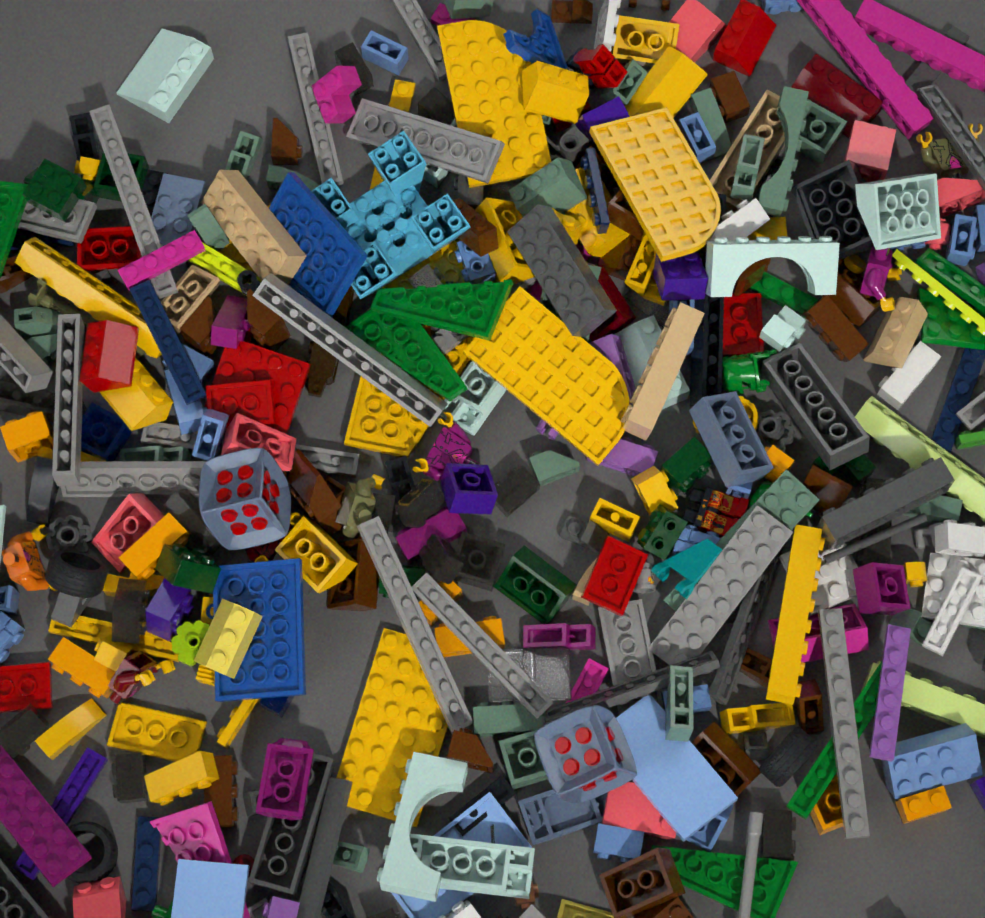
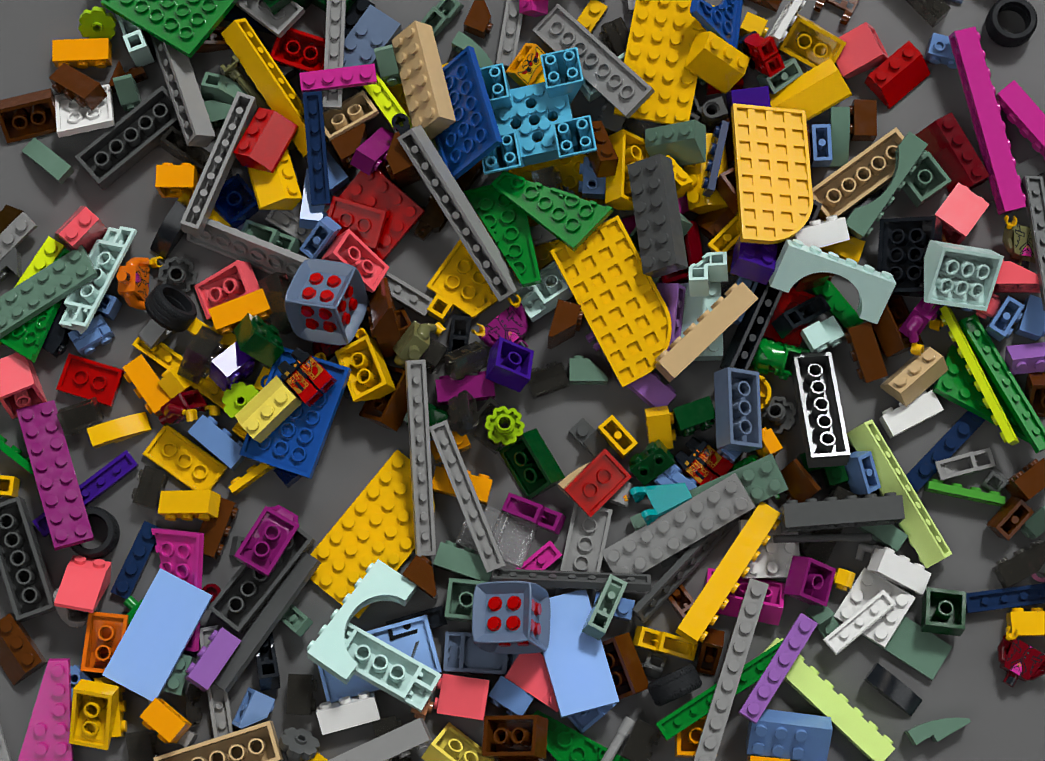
camera: 20 degrees right, 5 degrees up
(185, 698) = (217, 441): none -> medium blue brick
(249, 583) = (303, 370): none -> hips
(355, 173) = (526, 65): none -> light orange brick
(369, 460) = (440, 308): none -> yellow brick
(487, 564) = (505, 435): none -> lime plant
(509, 421) = (565, 323): none -> reddish brown slope
(566, 864) = (462, 697): none -> coral slope
(573, 41) = (754, 23): none -> yellow brick
(639, 305) = (710, 269): none -> light aqua brick
(747, 167) = (850, 187): sand green slope -> none
(752, 318) = (800, 315): none -> black slope
(855, 264) = (907, 303): tile -> none
(887, 455) = (862, 473): none -> medium blue brick

